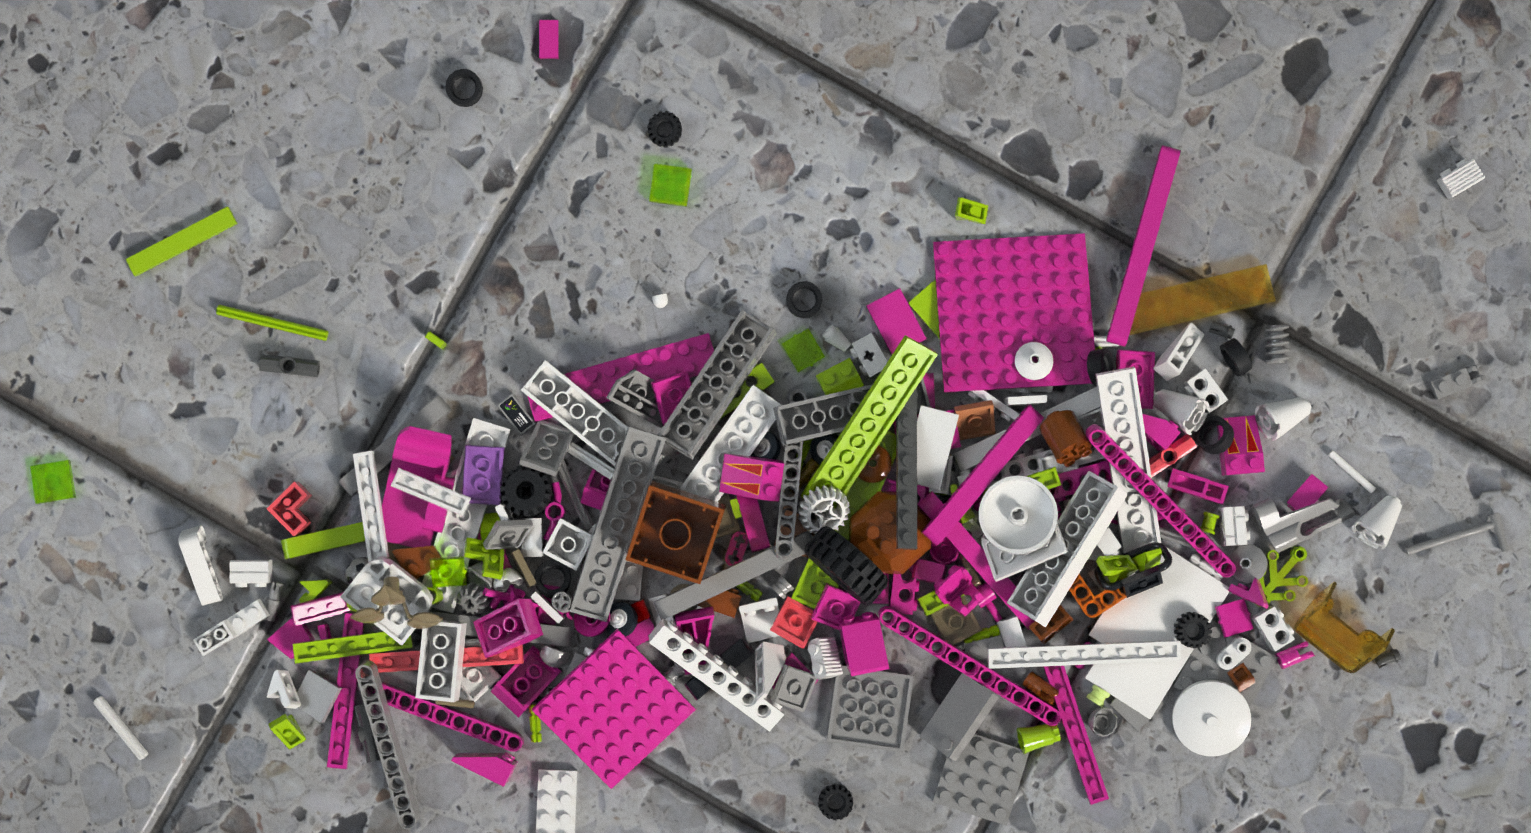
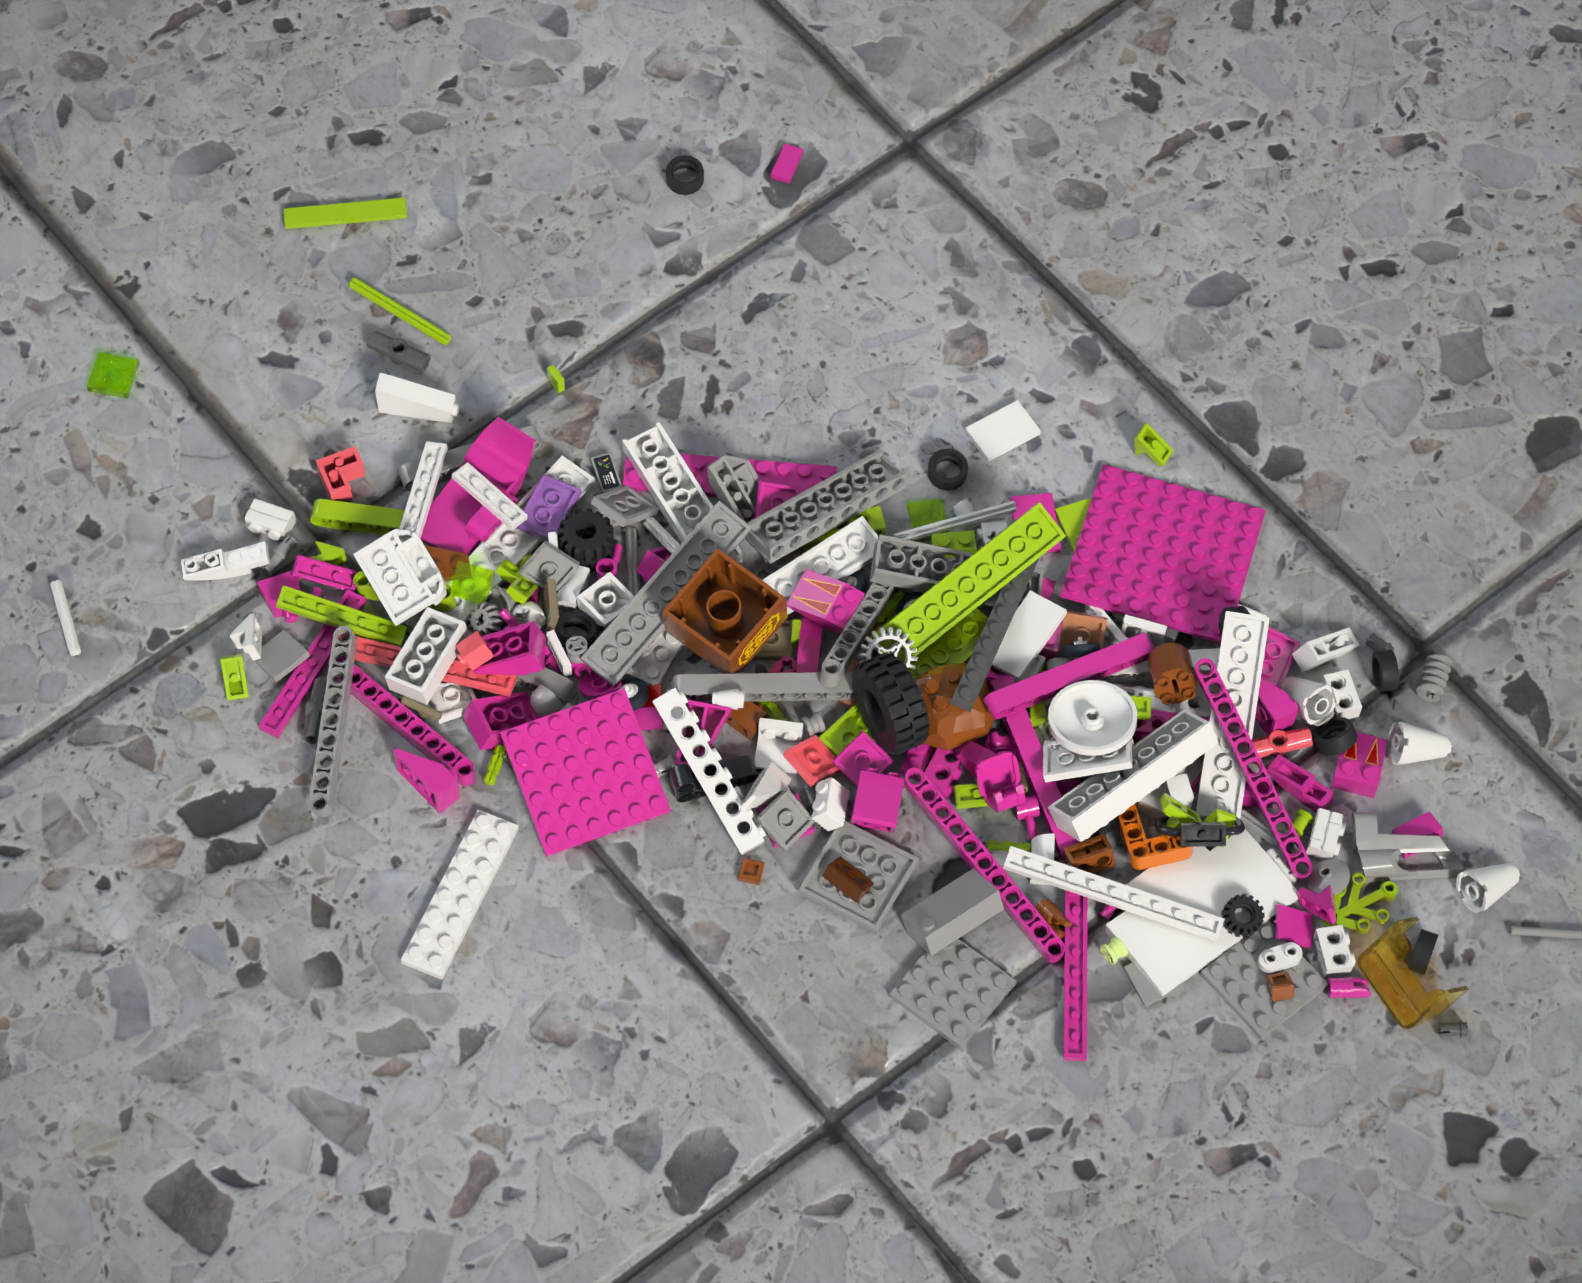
camera: 25 degrees right, 25 degrees down
(193, 548) = (222, 491): white beam -> none
(325, 411) = (414, 400): none -> white slope
(392, 595) = (409, 545): dark tan plant -> none
(479, 642) = (474, 651): none -> coral brick
(660, 300) = (799, 420): white hinge -> none
(664, 140) = (869, 264): black tyre -> none
(670, 185) = (853, 324): clear neon green plate -> none
(709, 606) = (729, 698): none -> white cone
(781, 736) = (751, 871): none -> dark orange tile
(830, 353) = (957, 522): none -> white axle
(835, 813) = (783, 967): black tyre -> none
(836, 241) = (1002, 431): none -> white tile
(864, 718) = (847, 879): none -> reddish brown slope
(882, 467) = (958, 648): dark orange dish -> none
(954, 626) = (987, 824): dark tan tile -> none
(980, 439) = (1079, 649): none -> black wheel
(1033, 370) = (1166, 604): white dish -> none
(1037, 737) = (1031, 966): lime plant -> none
(1103, 721) = (1109, 976): light grey hair -> none
(1143, 245) = (1322, 536): dark pink beam -> none
(1203, 299) = (1362, 608): clear yellow plate -> none
(1211, 717) = (1232, 1016): white dish -> none
(1346, 604) = (1423, 951): none -> black tyre
(1351, 471) = (1475, 830): white bar -> none

